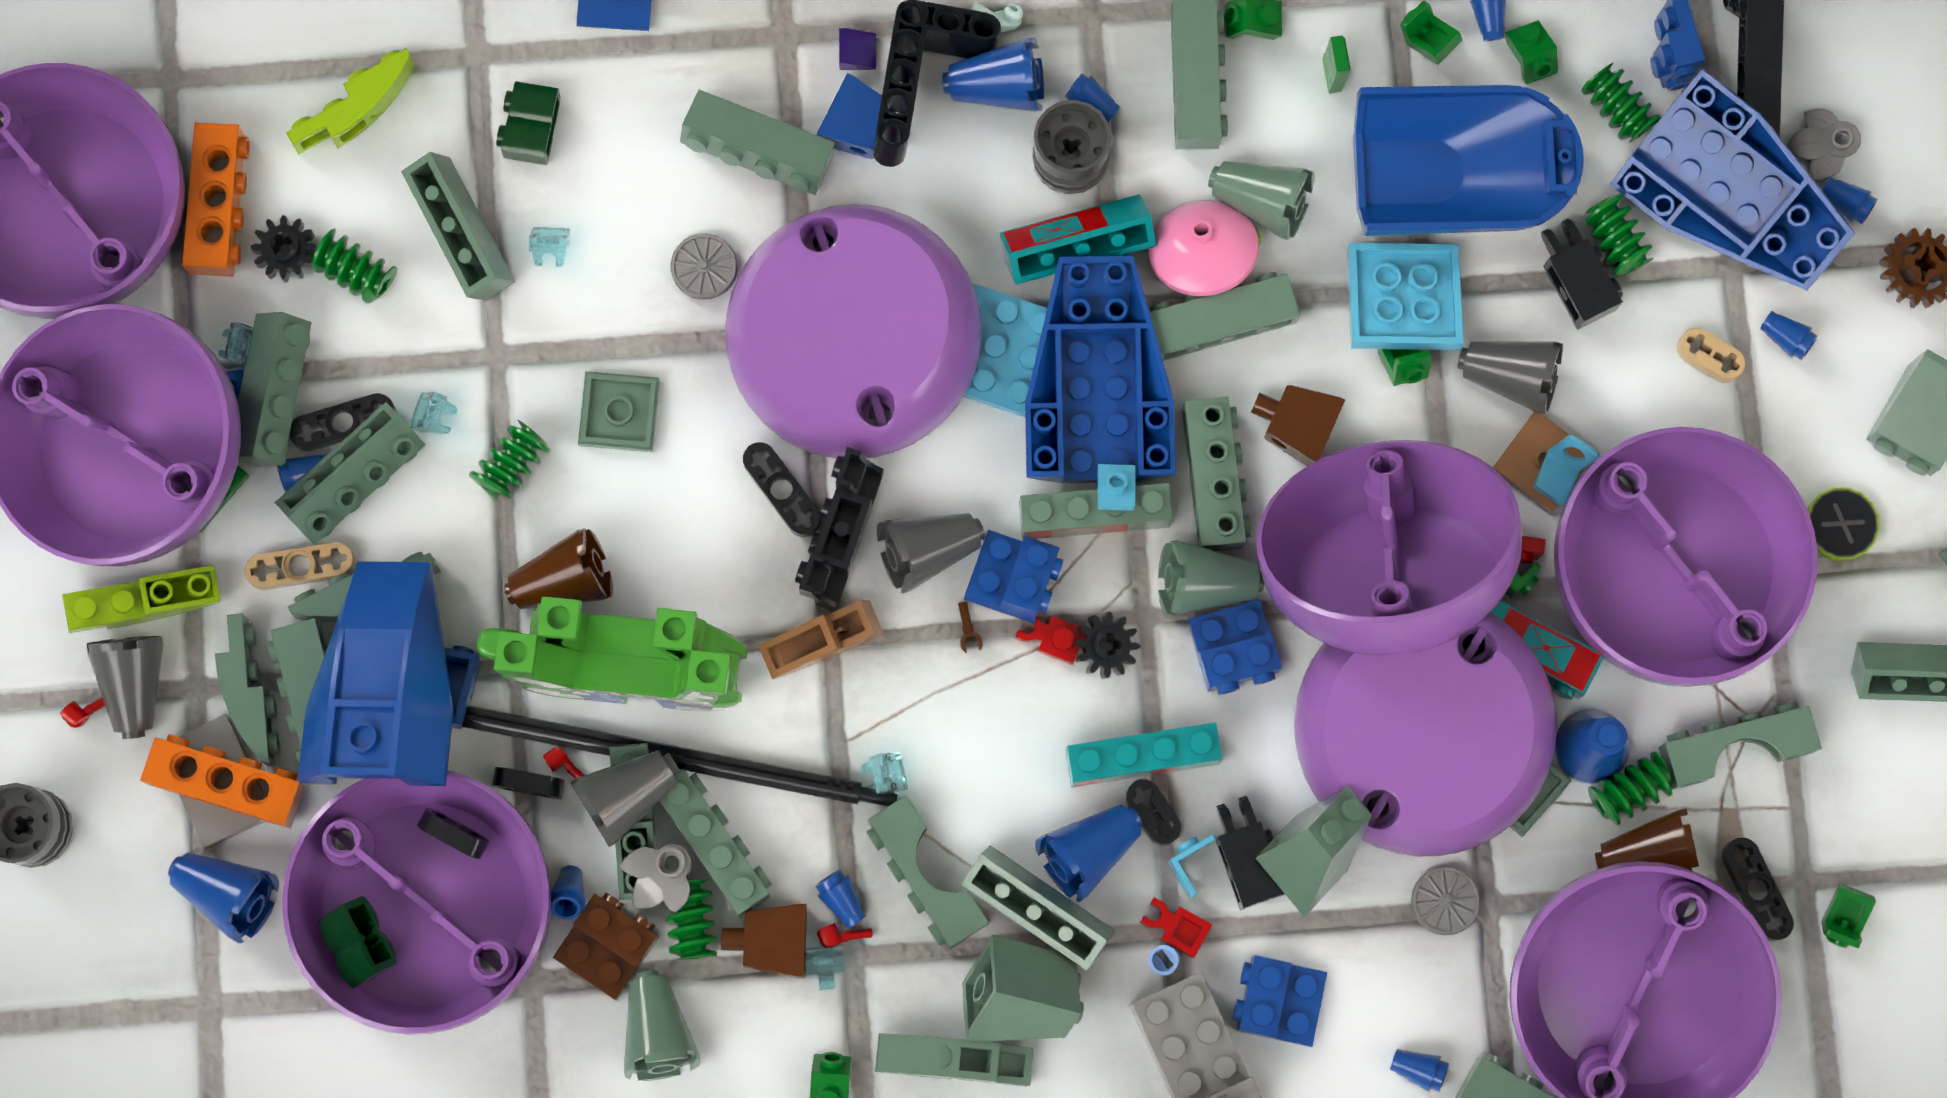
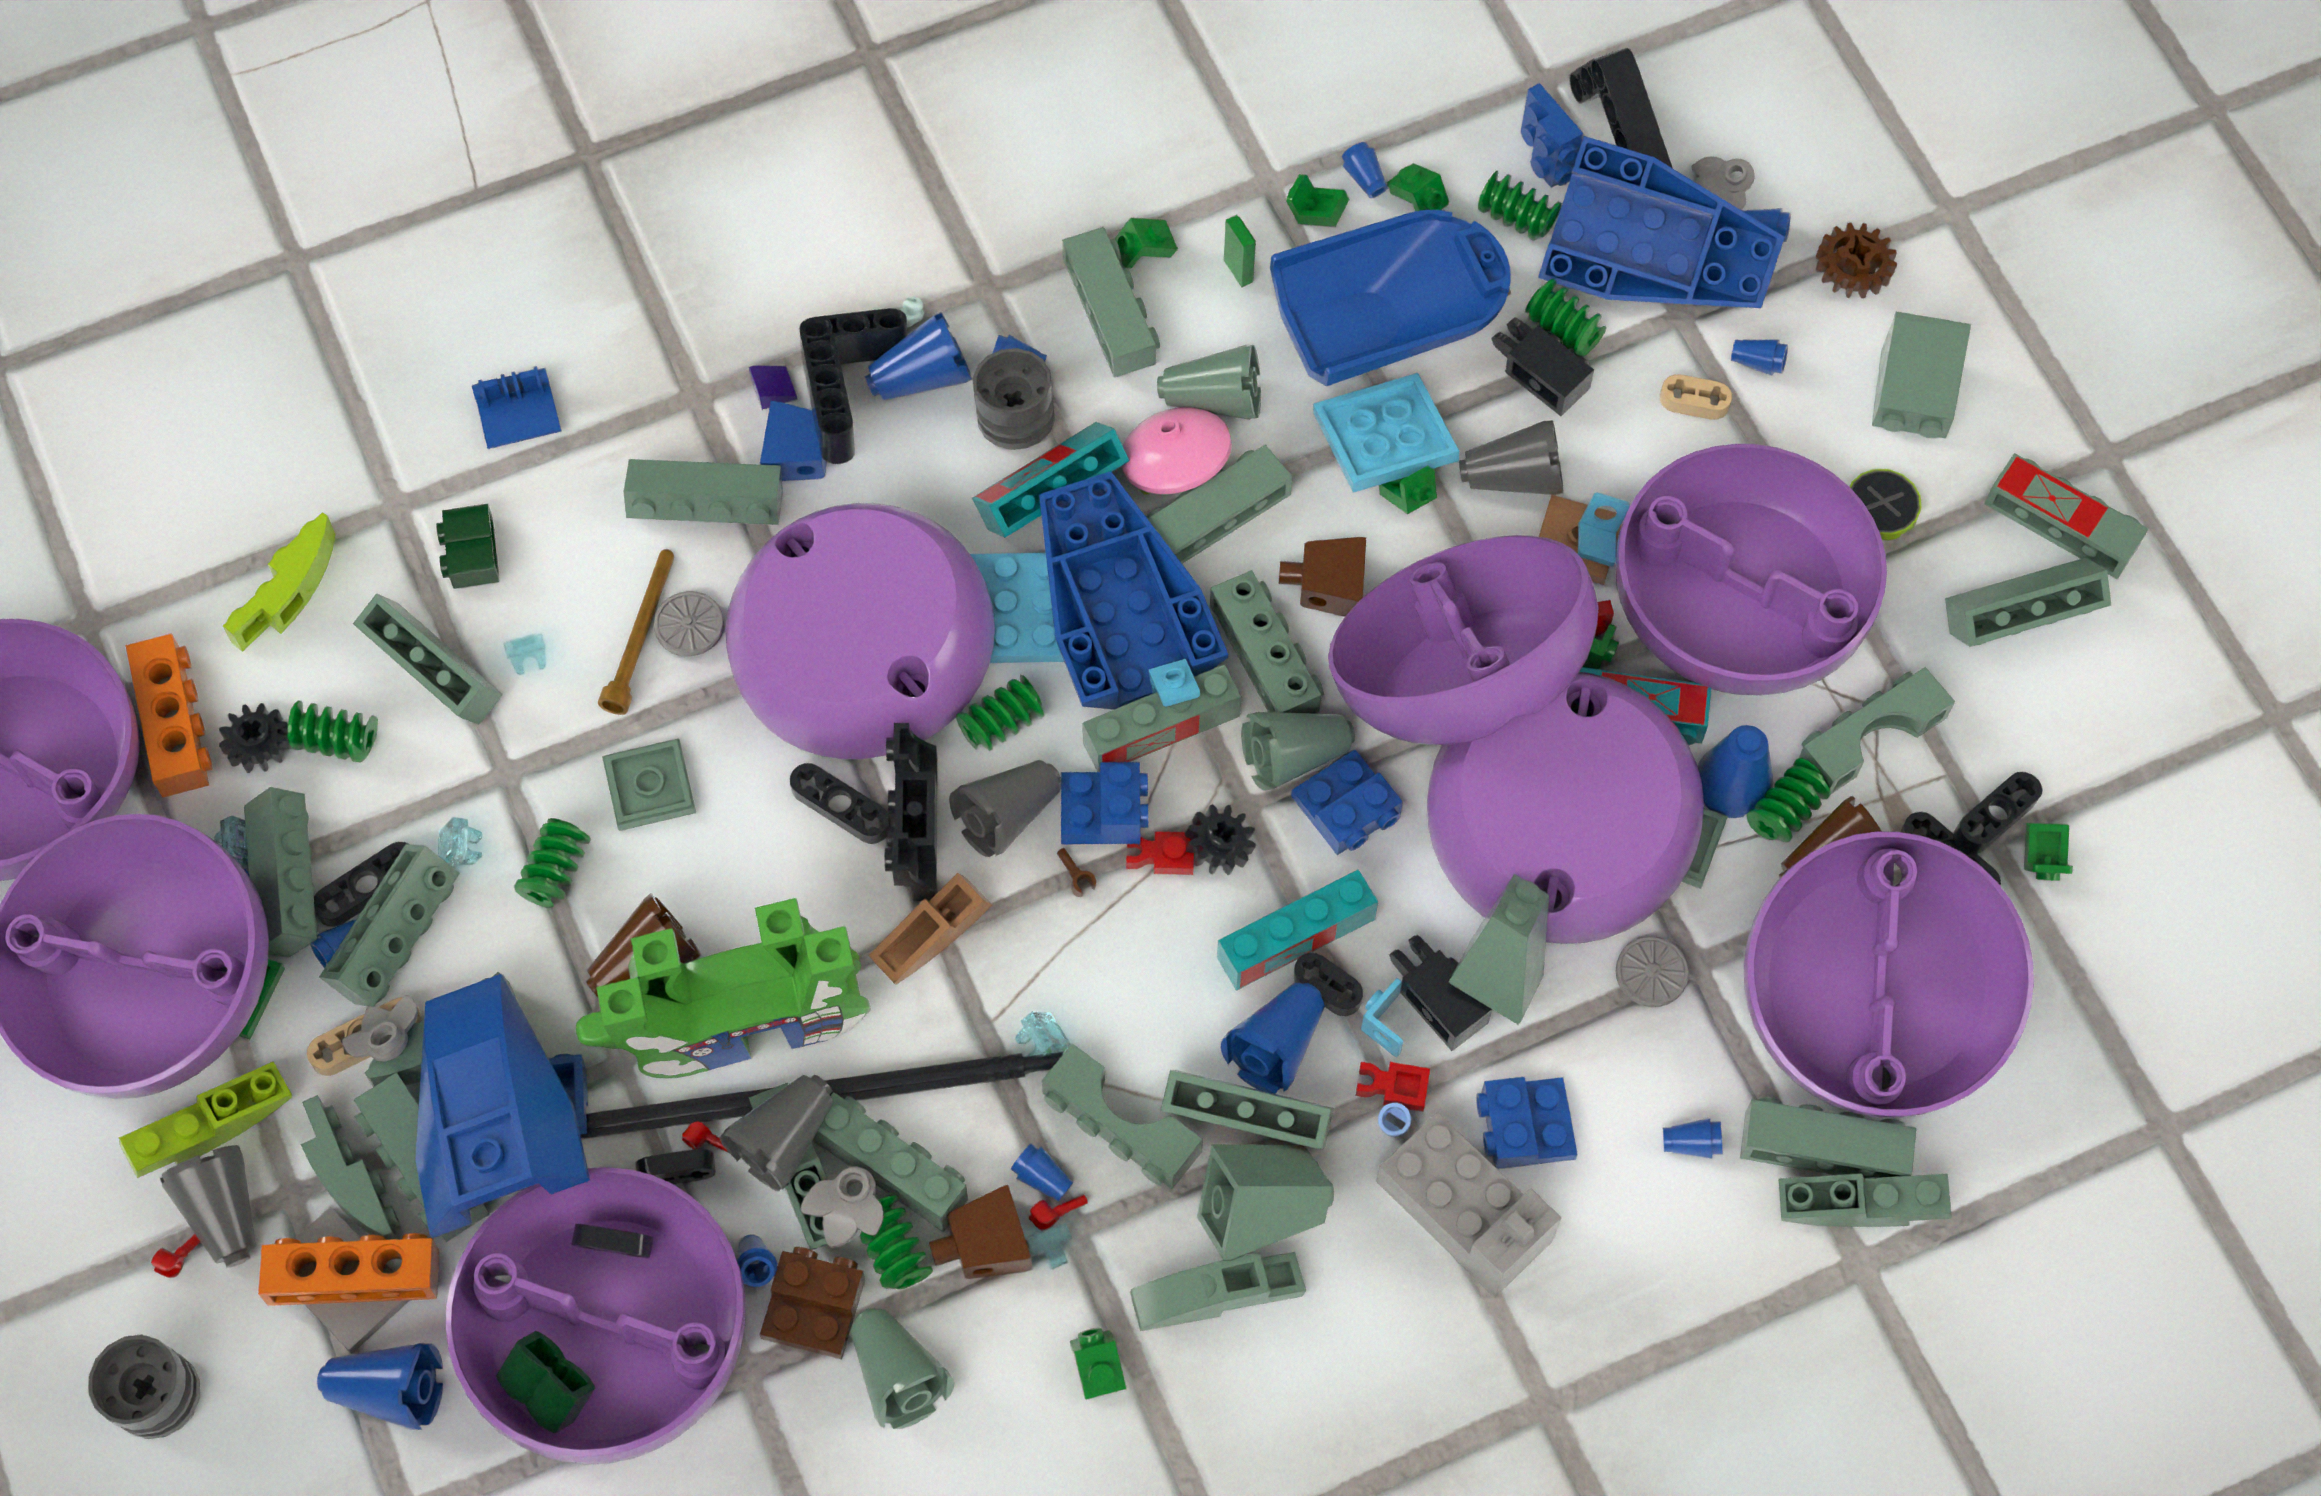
camera: 15 degrees left, 15 degrees down
(314, 571) = (383, 1031): none -> light grey plate
(617, 315) = (616, 696): none -> pearl gold piece
(953, 456) = (1000, 713): none -> green piece
(1833, 866) = (1992, 826): none -> black beam

